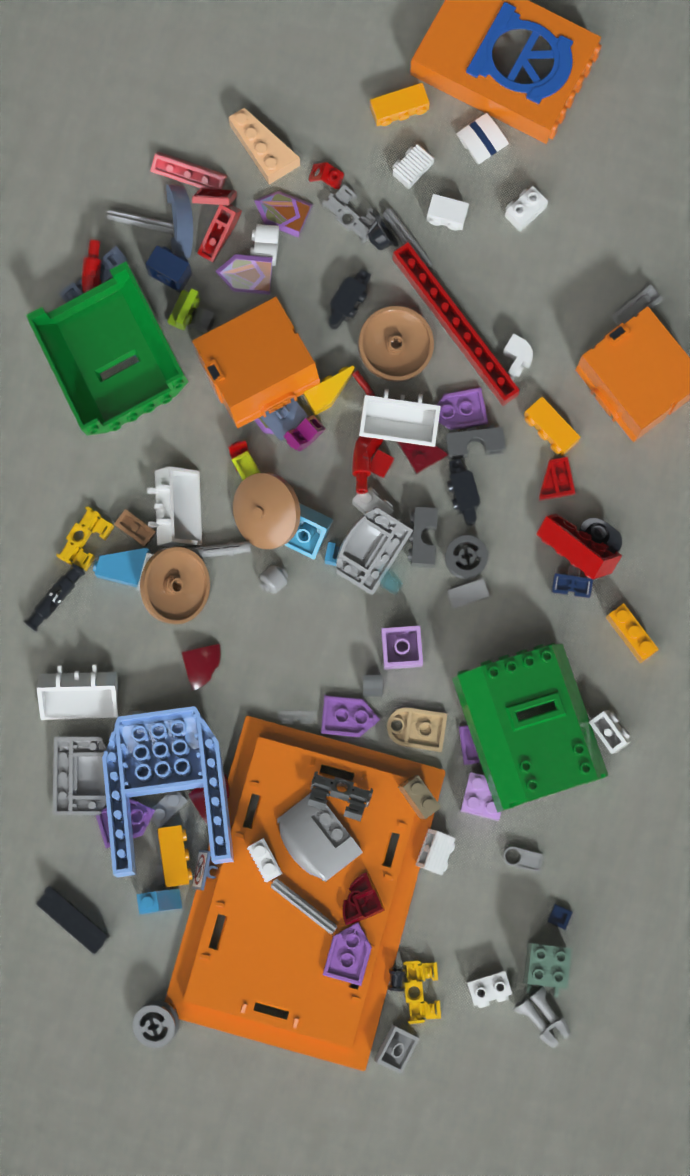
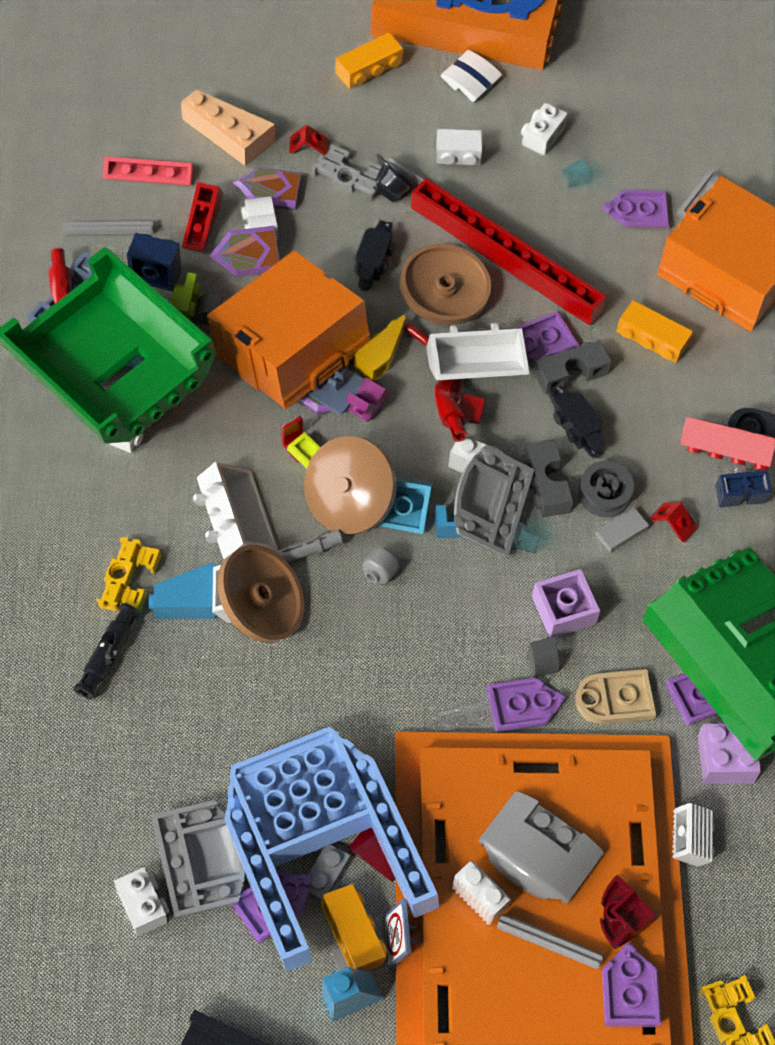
camera: 20 degrees left, 20 degrees down
(33, 796) = (141, 901): none -> white brick
(78, 695) = (169, 760): white piece -> none
(135, 528) = (189, 548): medium nougat plate -> none
(182, 220) = (154, 210): sand blue slope -> none
(201, 664) = (318, 686): dark red brick -> none
(214, 196) = (187, 180): red tile -> none
(325, 785) = (527, 782): dark grey piece -> none
(396, 979) = (701, 1011): black bush -> none
(412, 165) = (403, 113): white brick -> none
(419, 797) = (653, 764): dark tan brick -> none
(421, 456) = (511, 393): dark red wing -> none
(513, 596) = (678, 519): none -> red bracket
(520, 352) = (589, 265): white brick -> none
(539, 259) = (576, 174): none -> clear light blue slope
(557, 480) = (681, 385): red wing -> none
(581, 305) = (640, 208): none -> medium lavender tile

